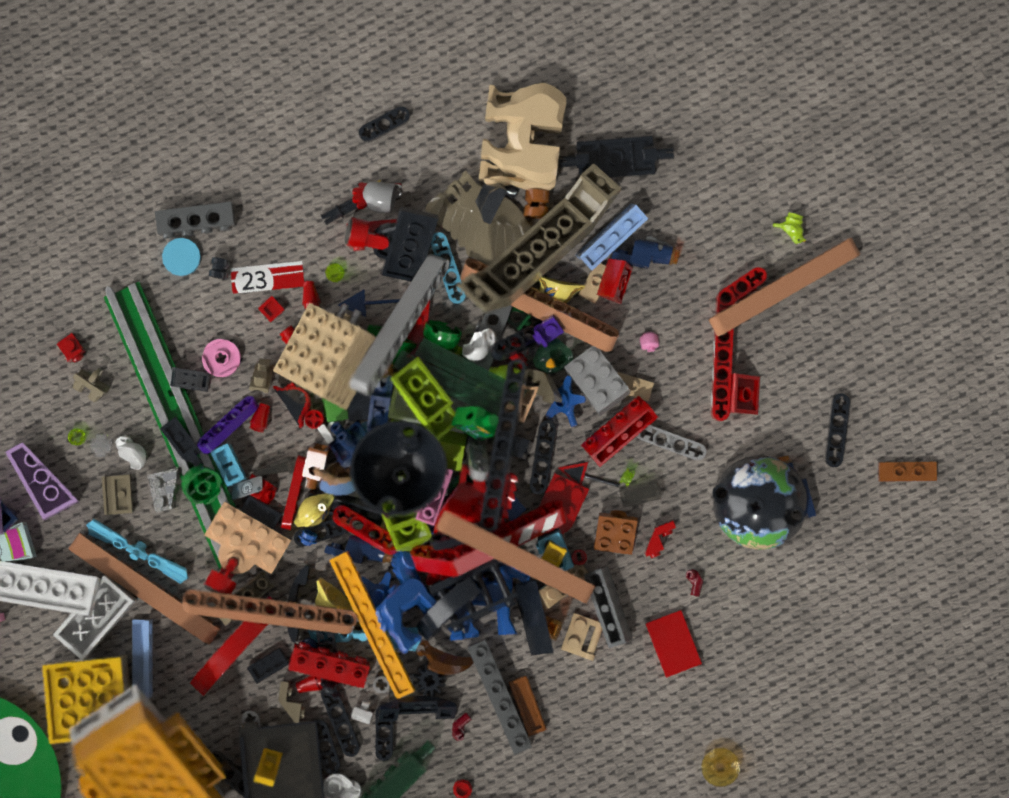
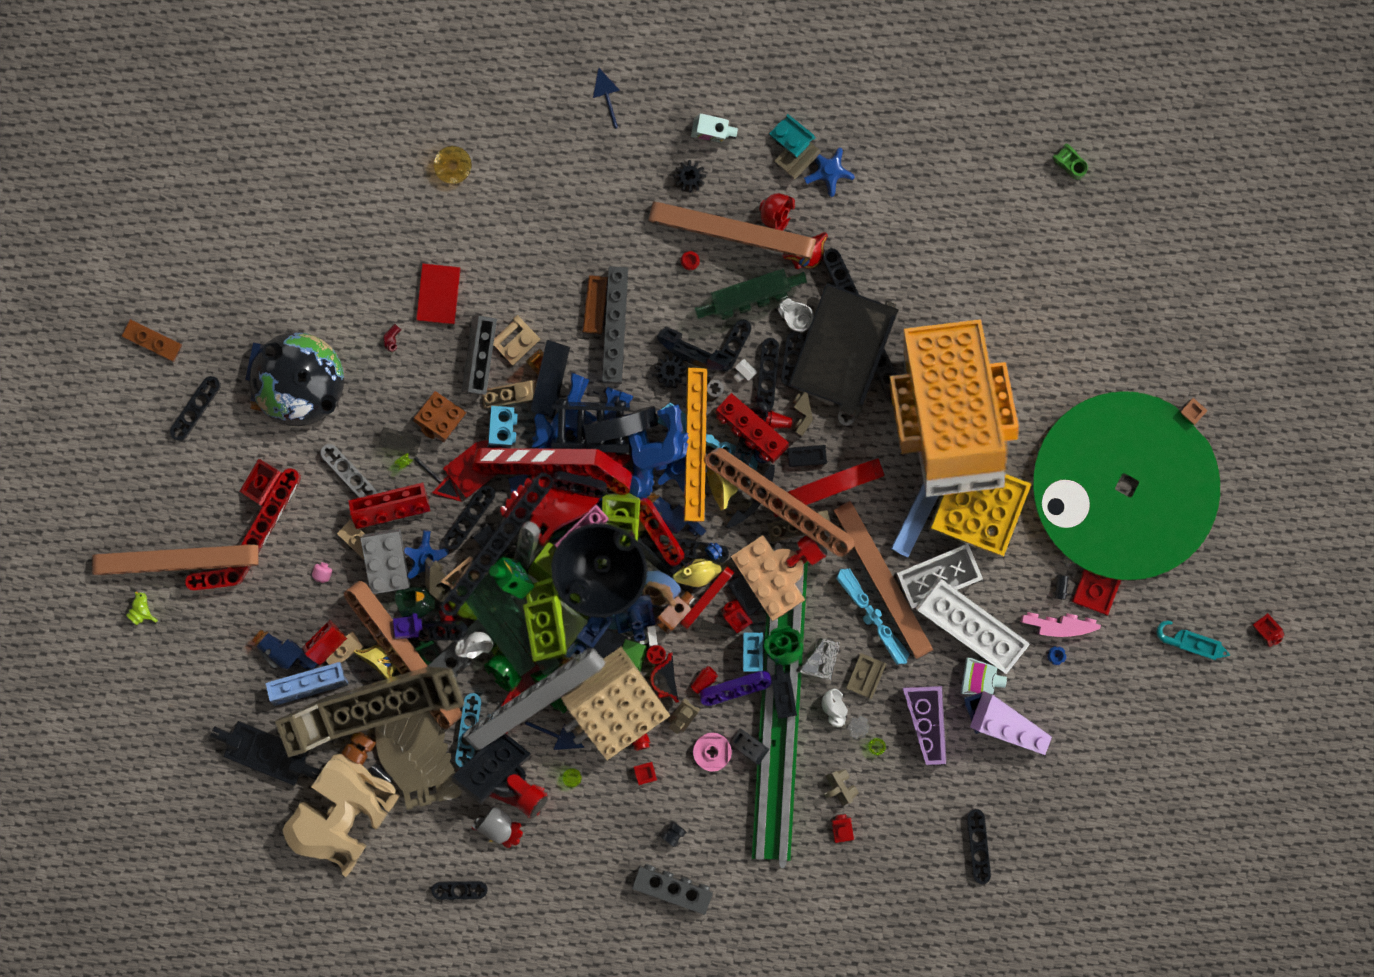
camera: 150 degrees left, 0 degrees up
(181, 257) = (702, 862): medium azure tile -> none
(247, 487) = (747, 623): light grey sticker -> none
(267, 277) = (635, 804): sticker -> none
(268, 767) = (849, 366): yellow slope -> none
(310, 294) = (604, 768): red cone -> none
(339, 211) = (539, 831): black axle -> none
(444, 662) = (649, 380): reddish brown piece -> none
(458, 727) = (666, 316): dark red arm -> none
(490, 200) = (398, 771): black slope -> none
(515, 557) = (537, 439): nougat beam -> none
(553, 554) = (502, 425): yellow plate -> none
(575, 558) = (478, 412): red hinge -> none
(654, 544) = (410, 389): red slope -> none

